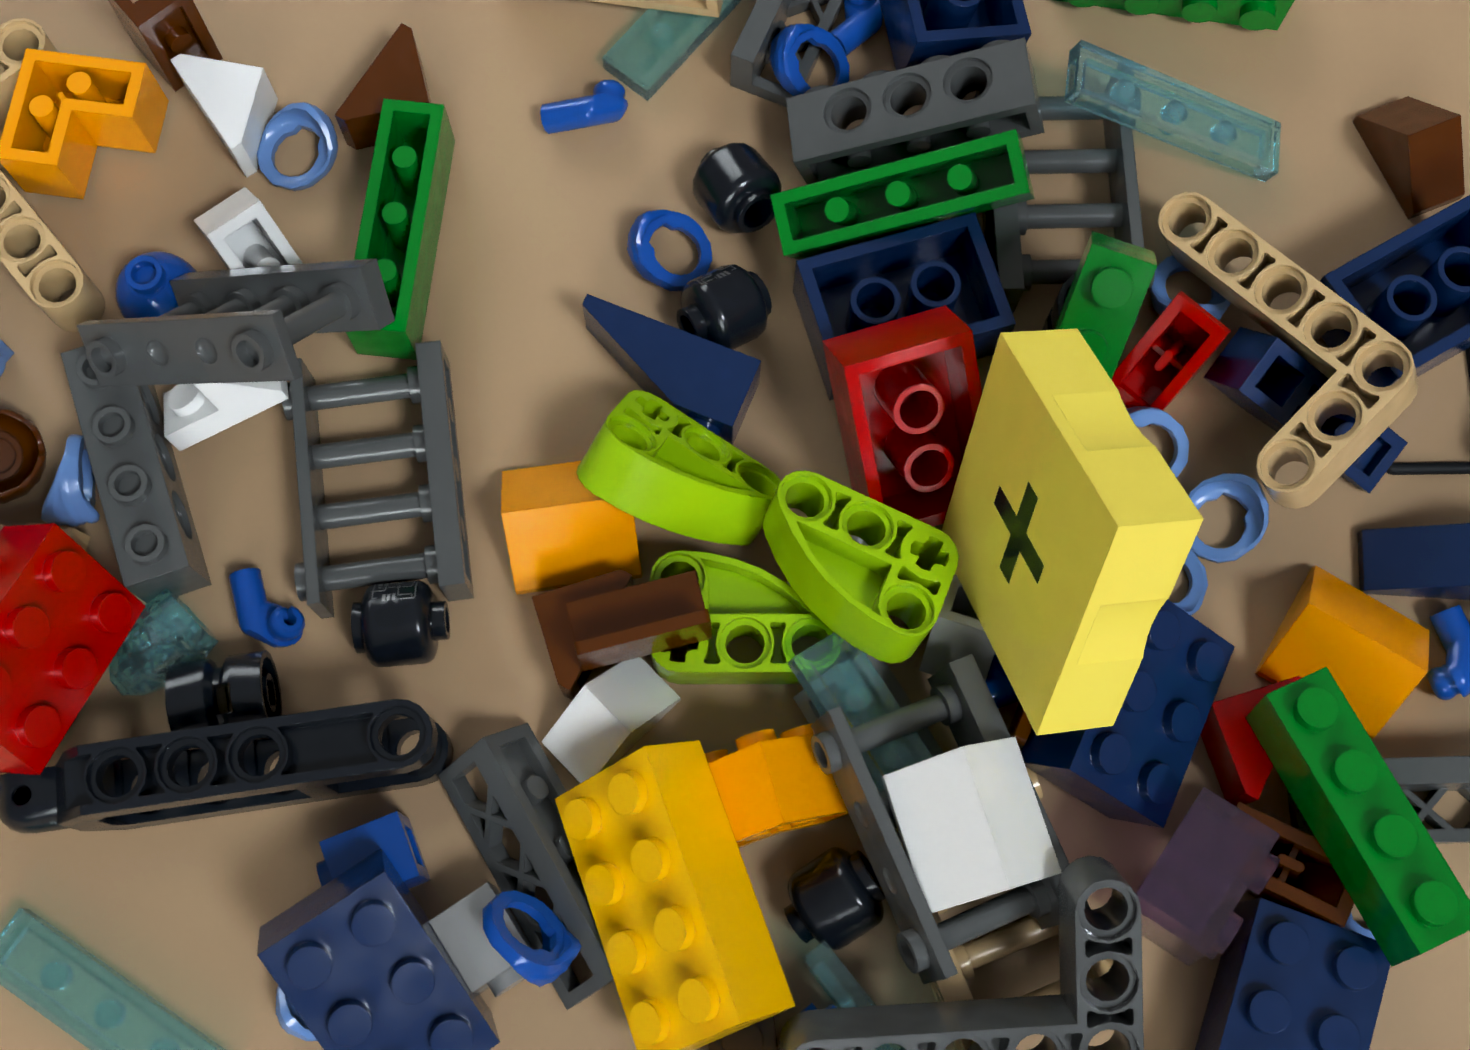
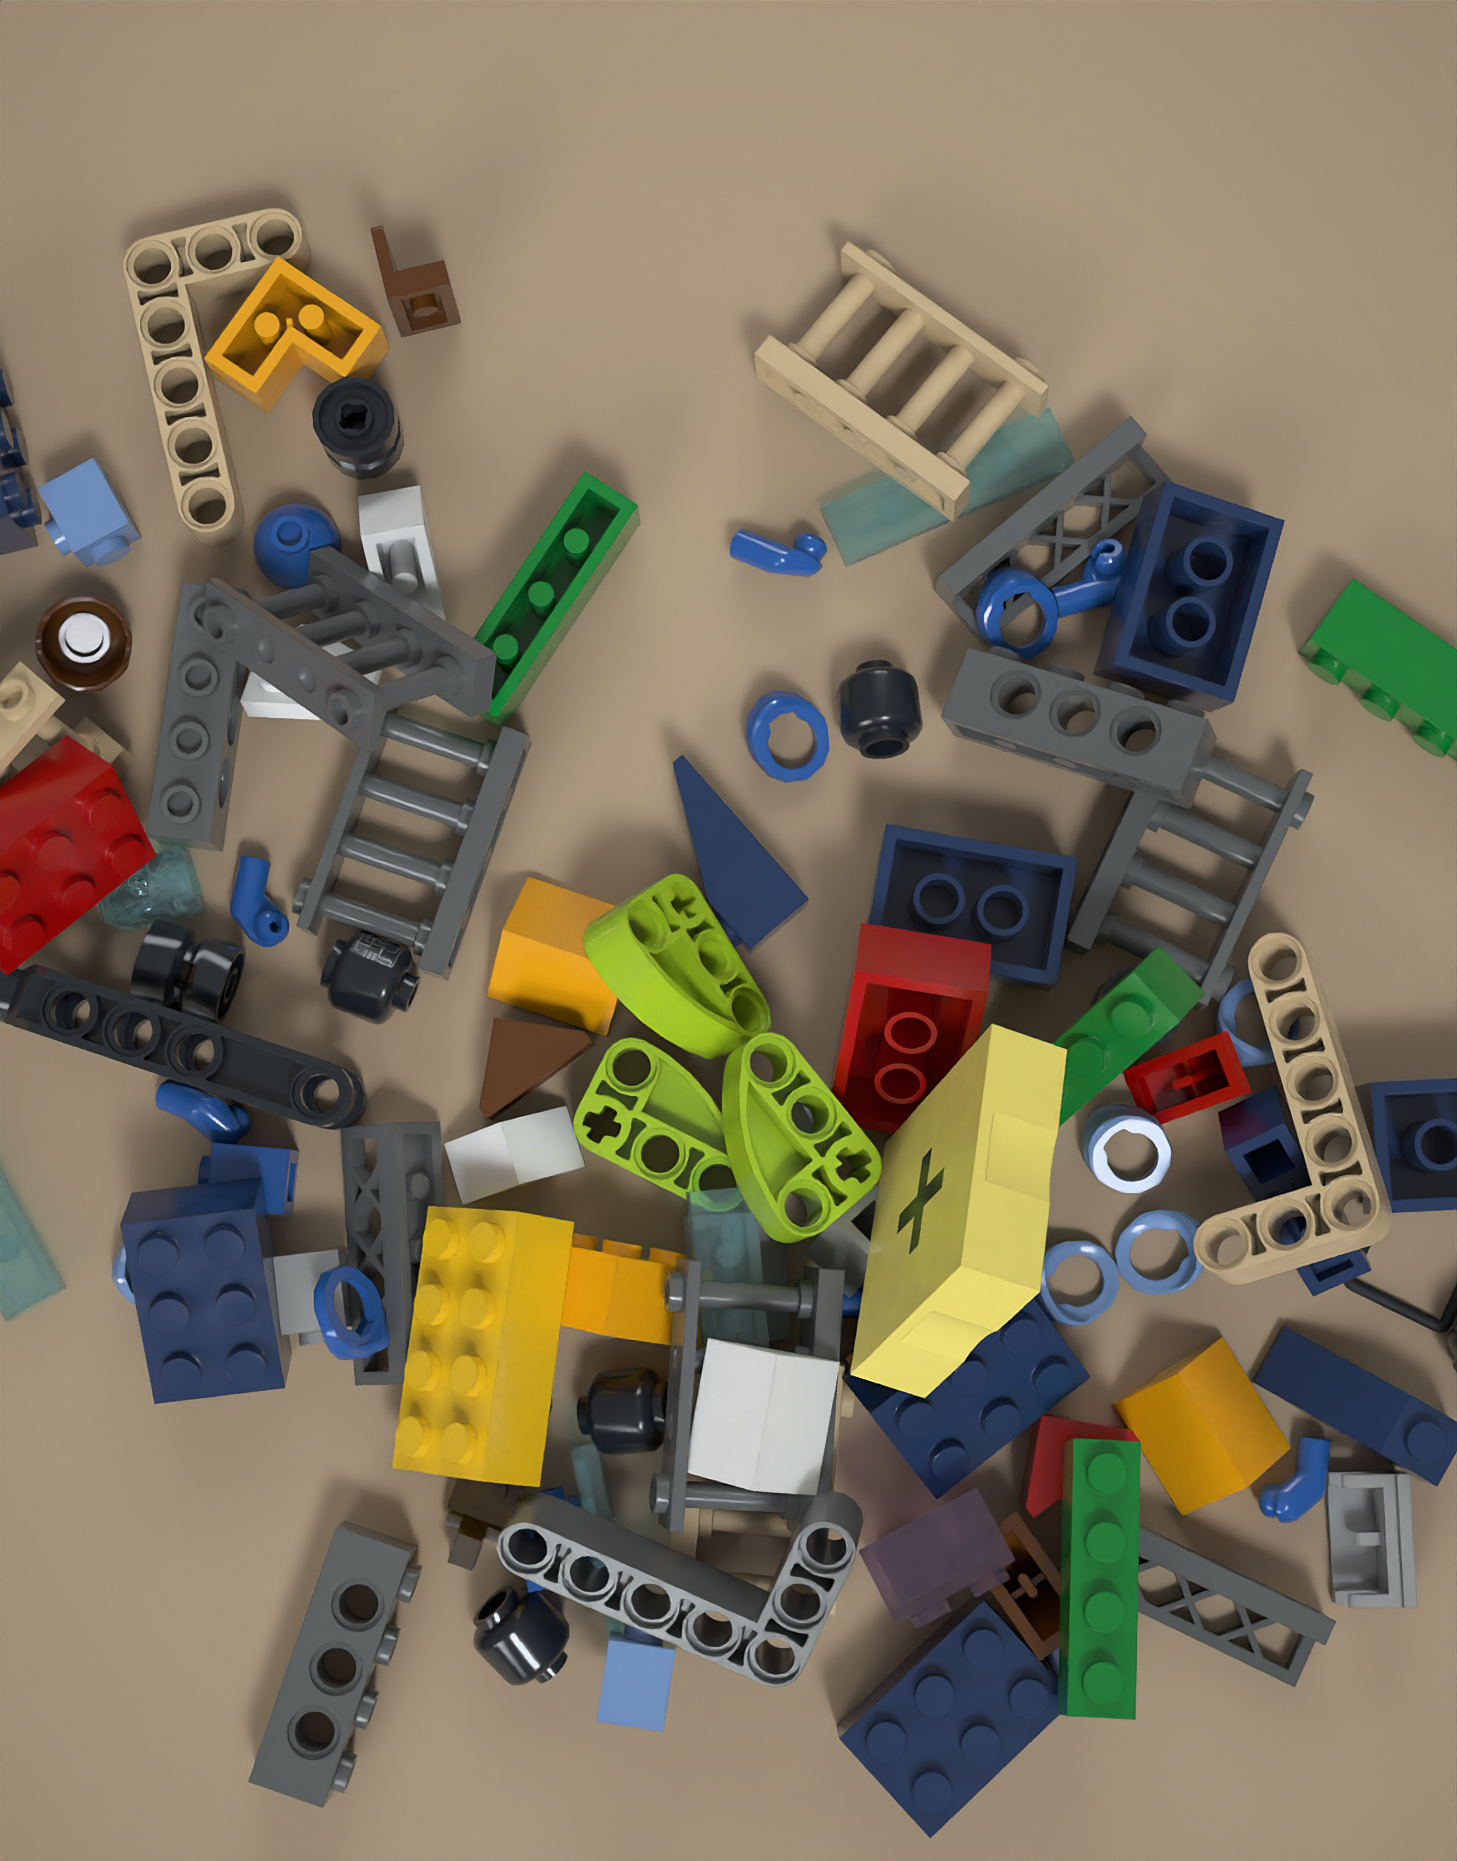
camera: 30 degrees right, 10 degrees up
(73, 489) = (136, 716): medium blue piece -> none
(167, 164) = (358, 427): none -> black wheel
(234, 101) = (447, 390): white slope -> none
(288, 123) = (492, 430): medium blue piece -> none
(299, 822) = (204, 1112): none -> blue arm
(393, 75) = (603, 448): reddish brown slope -> none
(639, 620) = (575, 1088): reddish brown panel -> none
(725, 306) = (805, 825): black head -> none
(903, 195) = (1021, 808): green brick -> none
(1172, 111) = (1333, 843): clear light blue tile -> none

